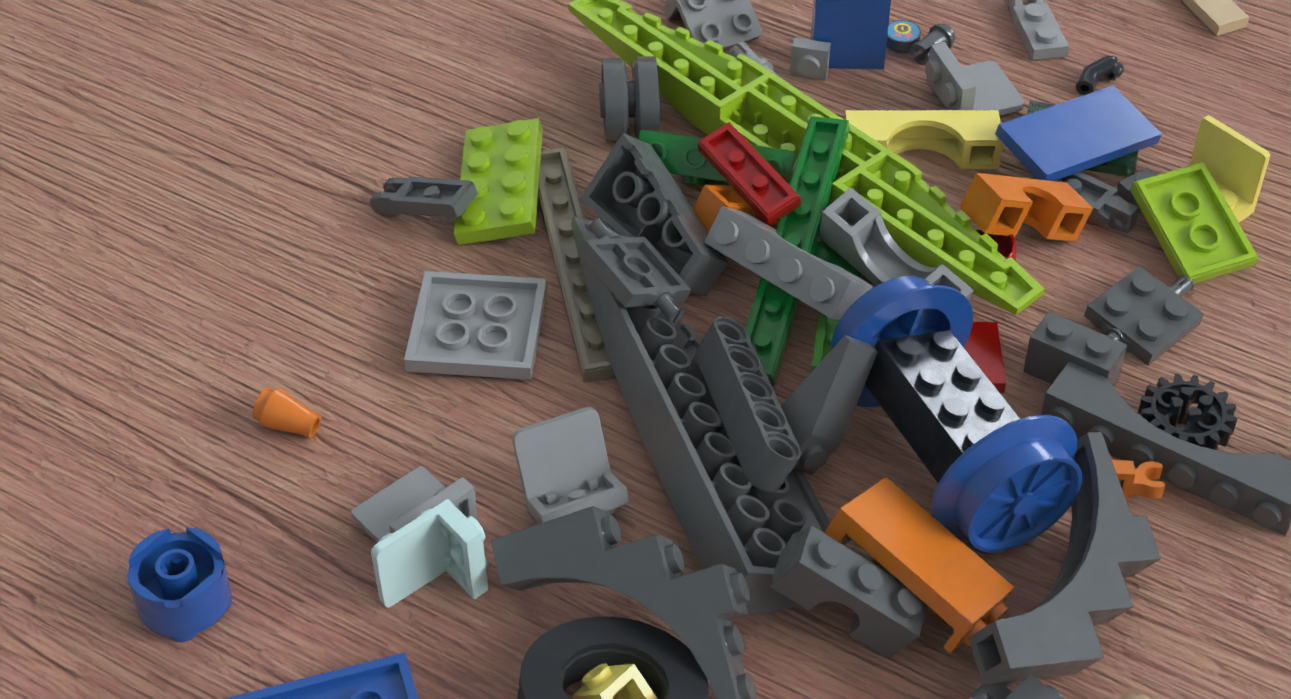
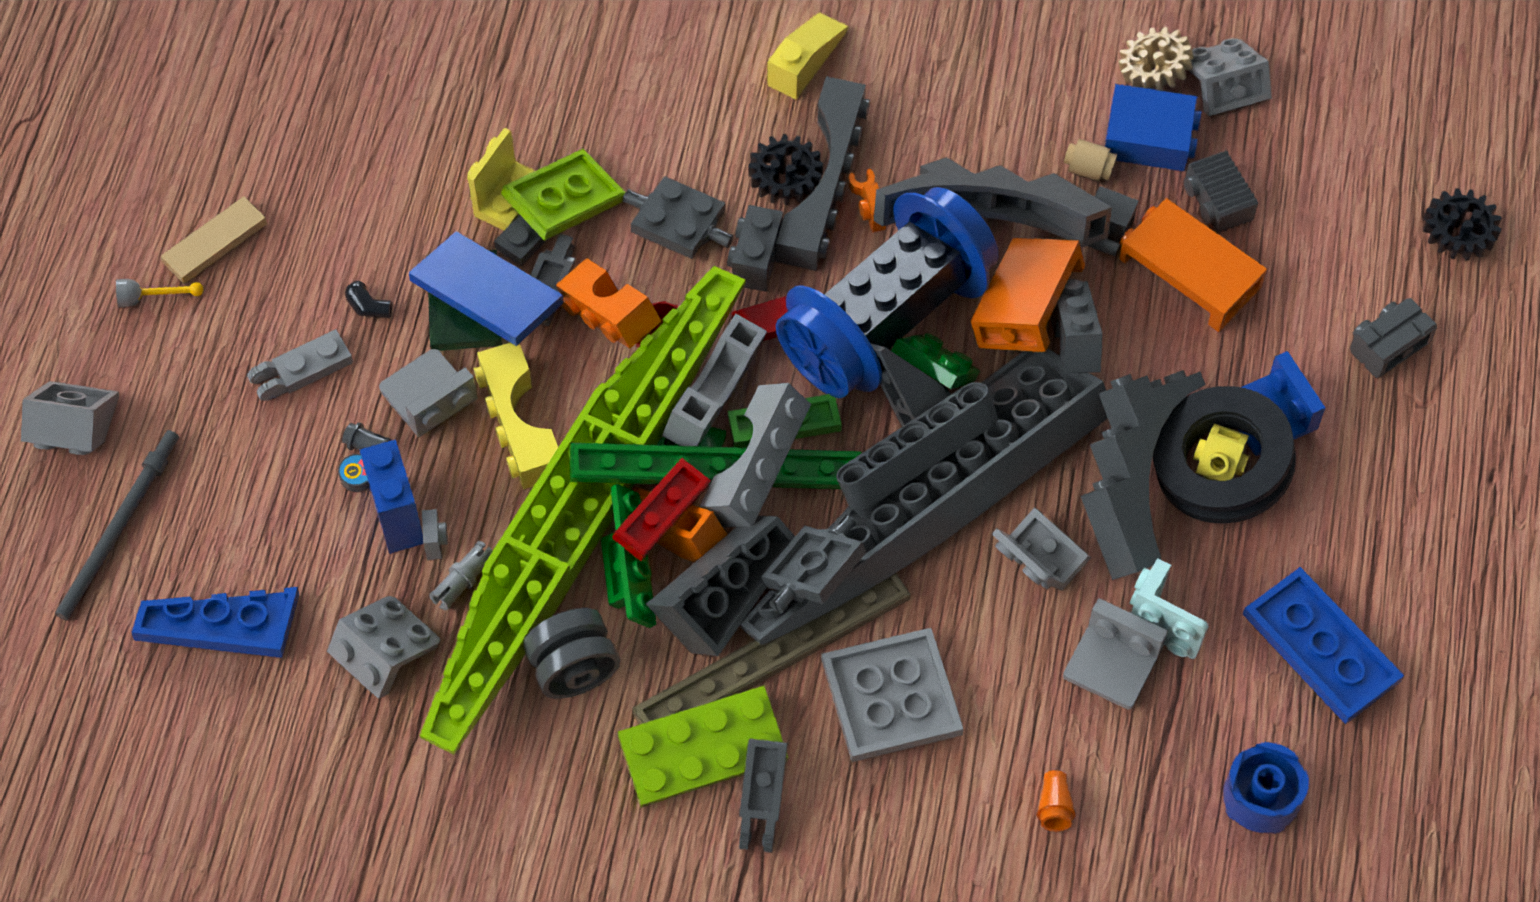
camera: 110 degrees left, 15 degrees up
(856, 454) = (936, 361): none -> green plate

